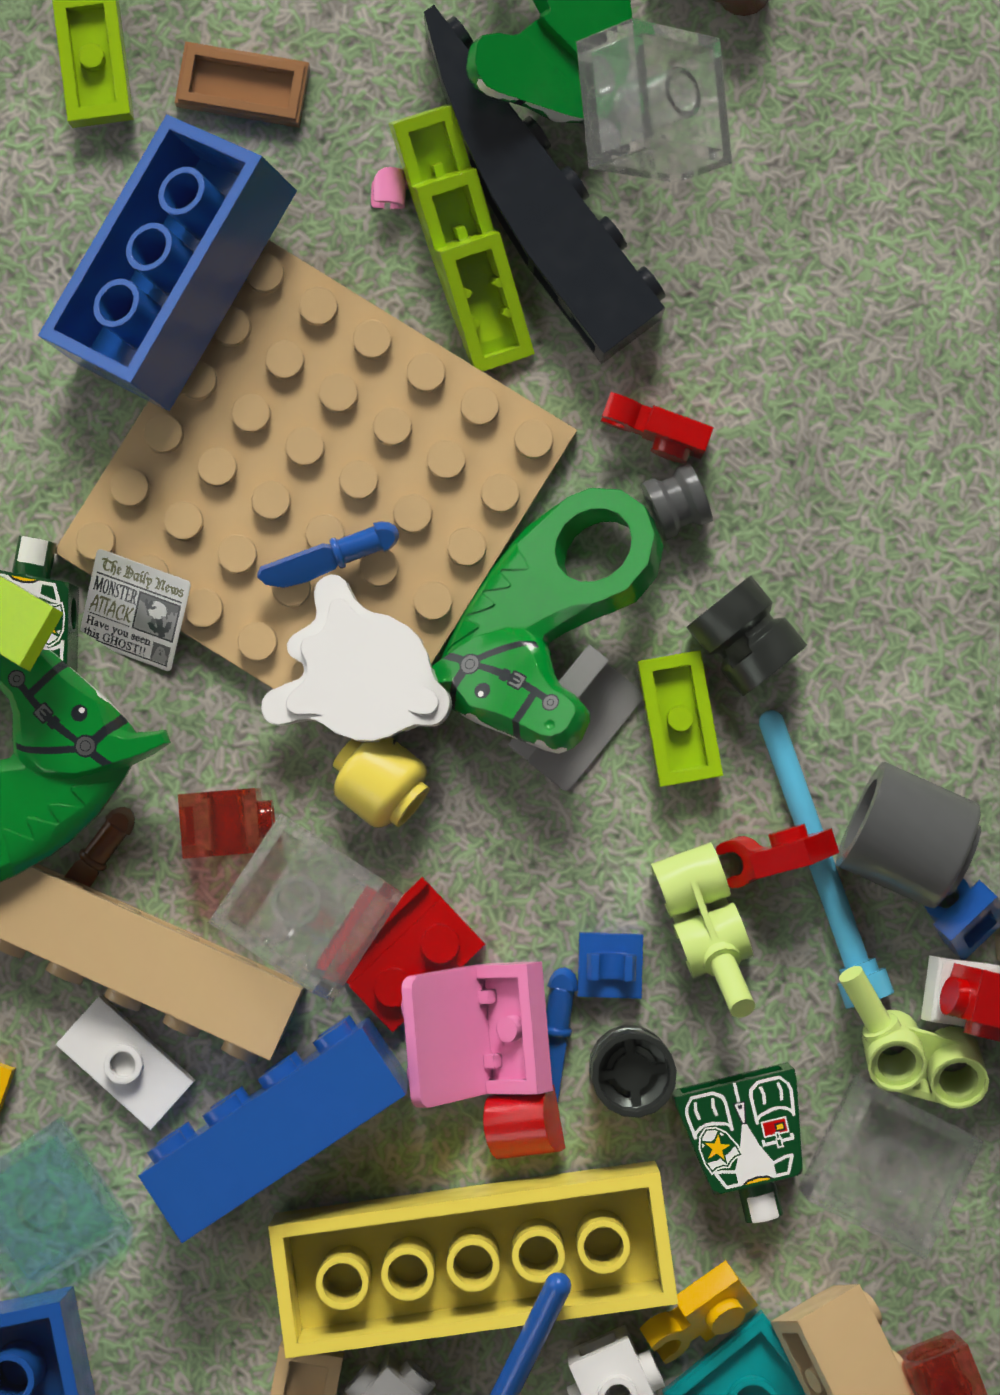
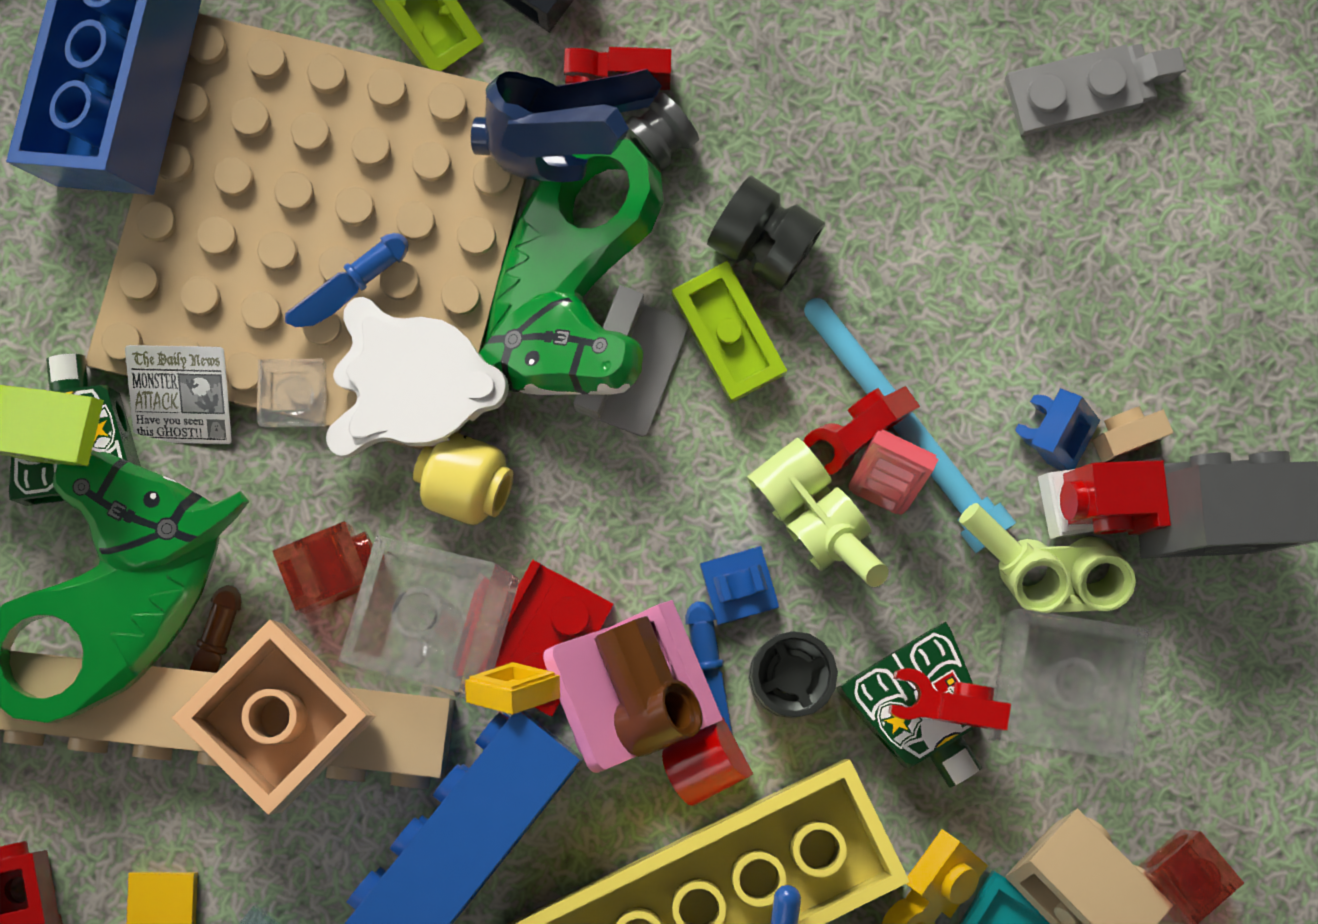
camera: 20 degrees left, 5 degrees down
(125, 1062) = (307, 836): white plate -> none
(133, 960) = (274, 717): none -> light nougat brick
(242, 648) = (291, 393): none -> clear plate
(364, 1004) = (512, 688): none -> yellow tile
(490, 1059) = (652, 705): none -> reddish brown piece
(549, 473) = (541, 125): none -> dark blue piece
(786, 1159) = (967, 705): none -> red plate
(789, 909) = (892, 472): none -> coral slope
(910, 836) = (982, 368): dark grey piece -> none

